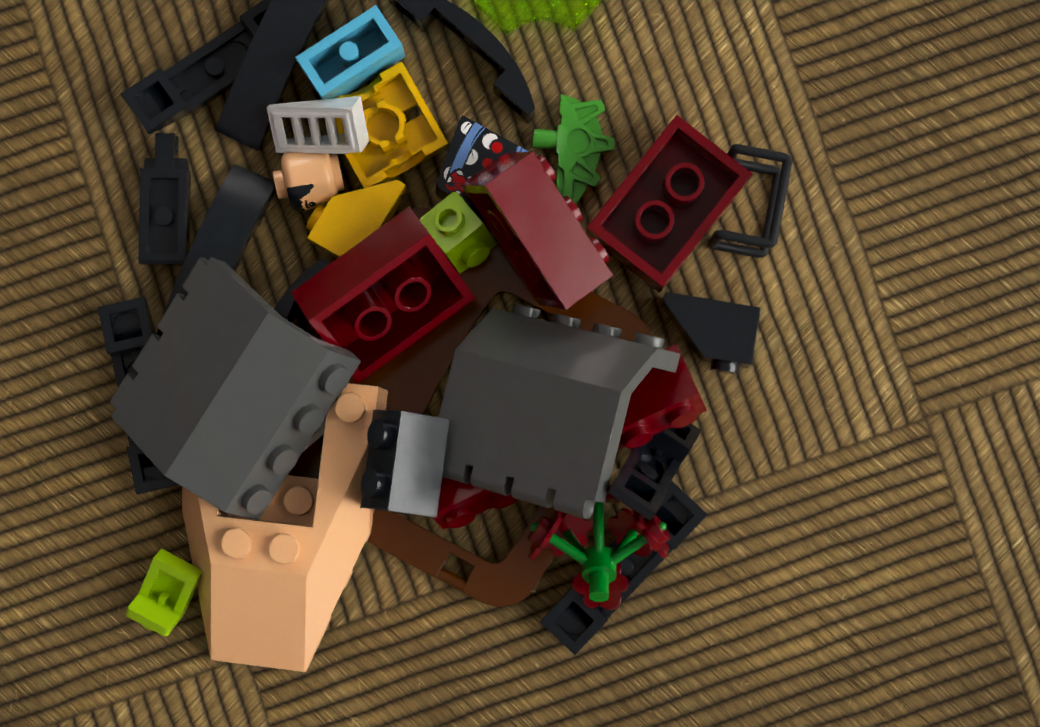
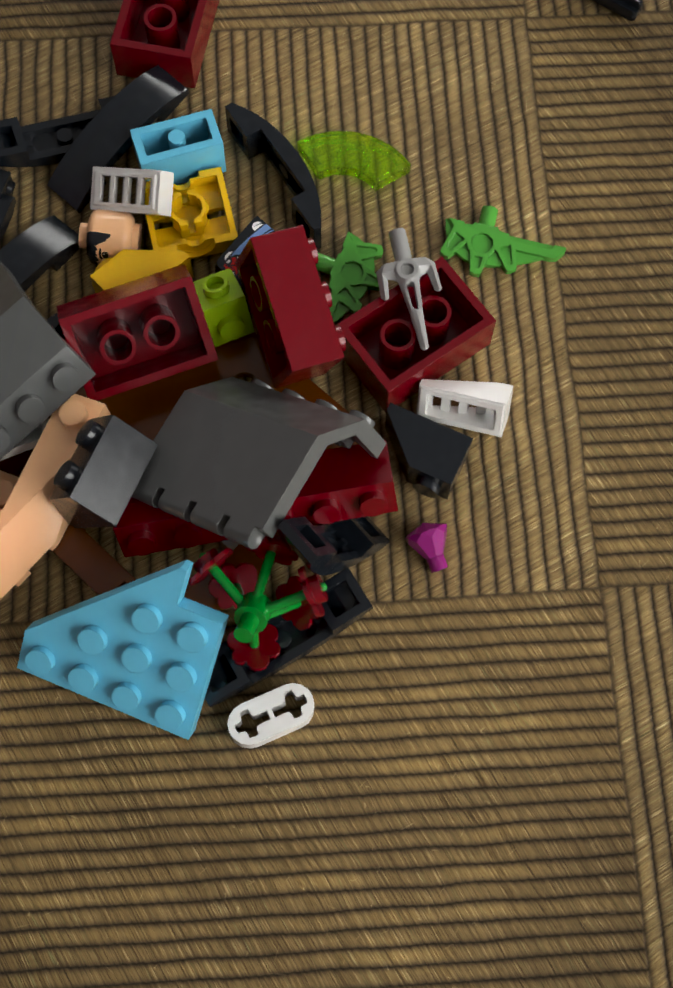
camera: 10 degrees right, 15 degrees down
(485, 627) = (133, 649): none -> medium azure wing
(643, 654) = (266, 705): none -> white beam
(645, 149) = (407, 273): none -> light grey piece
(717, 68) = (488, 247): none -> bright green piece
(741, 267) = (491, 399): none -> white slope
(743, 424) = (429, 542): none -> magenta rock
(775, 204) = (515, 341): black piece -> none

